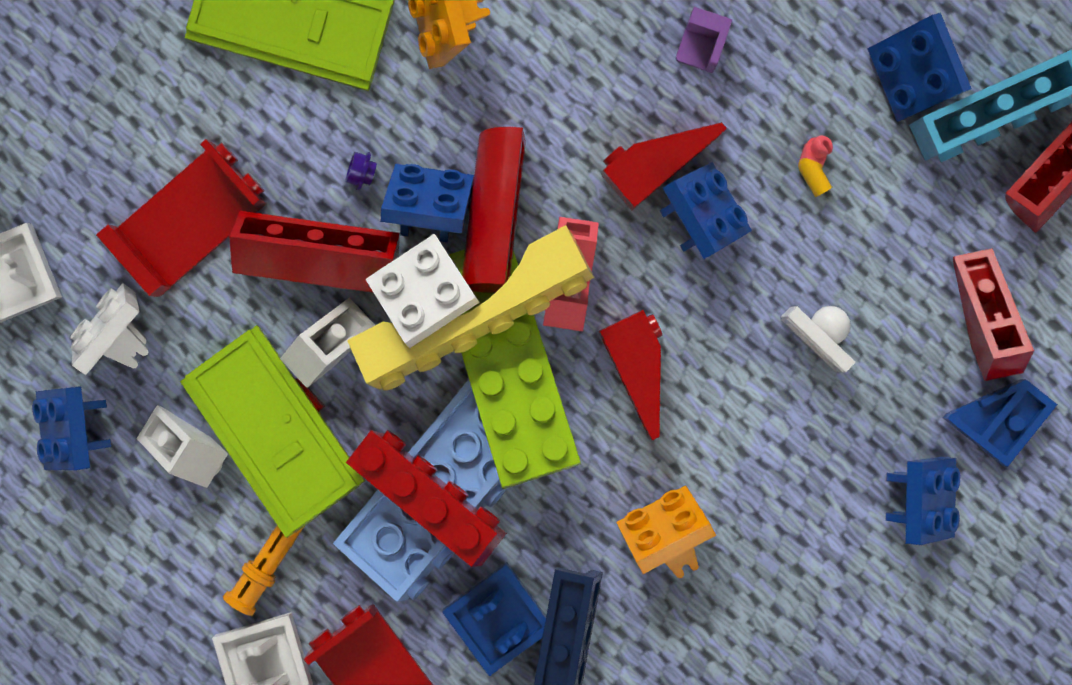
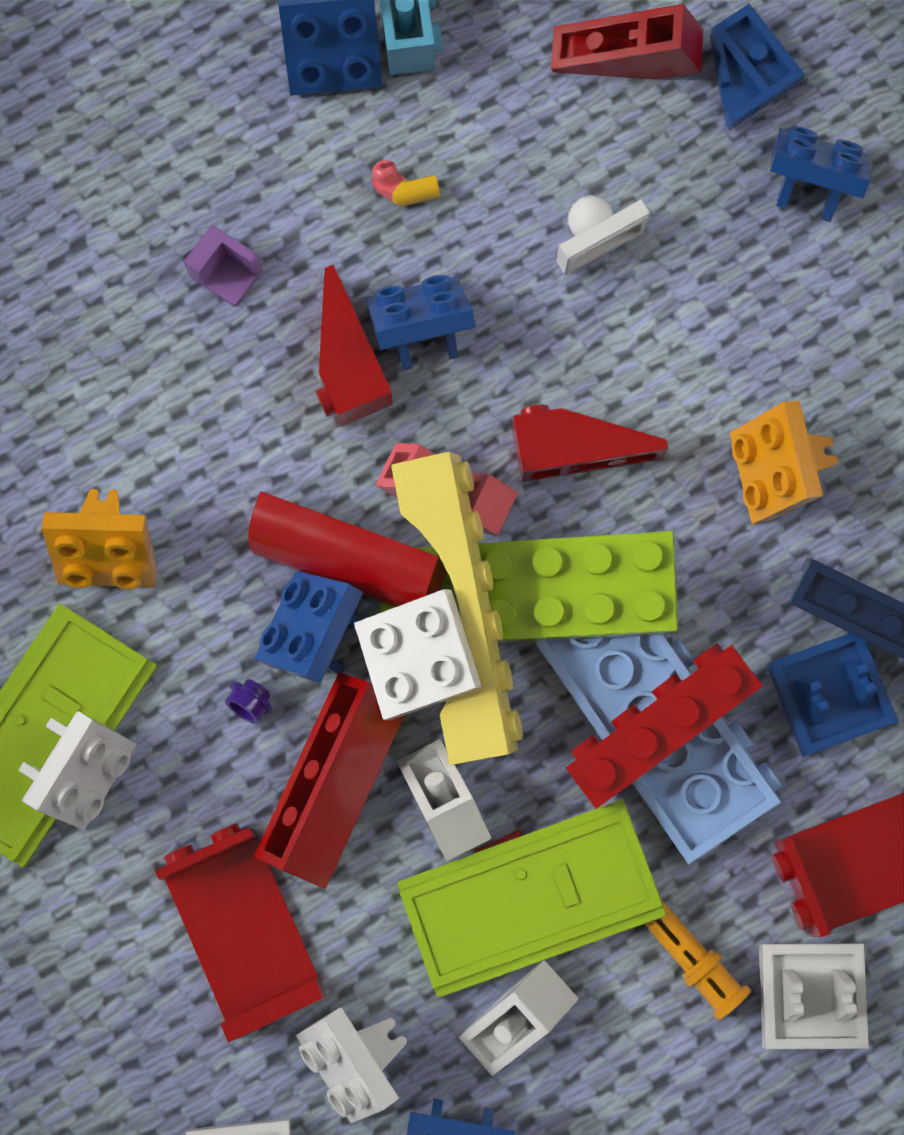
camera: 75 degrees left, 10 degrees down
(263, 56) = (78, 770): none -> white plate

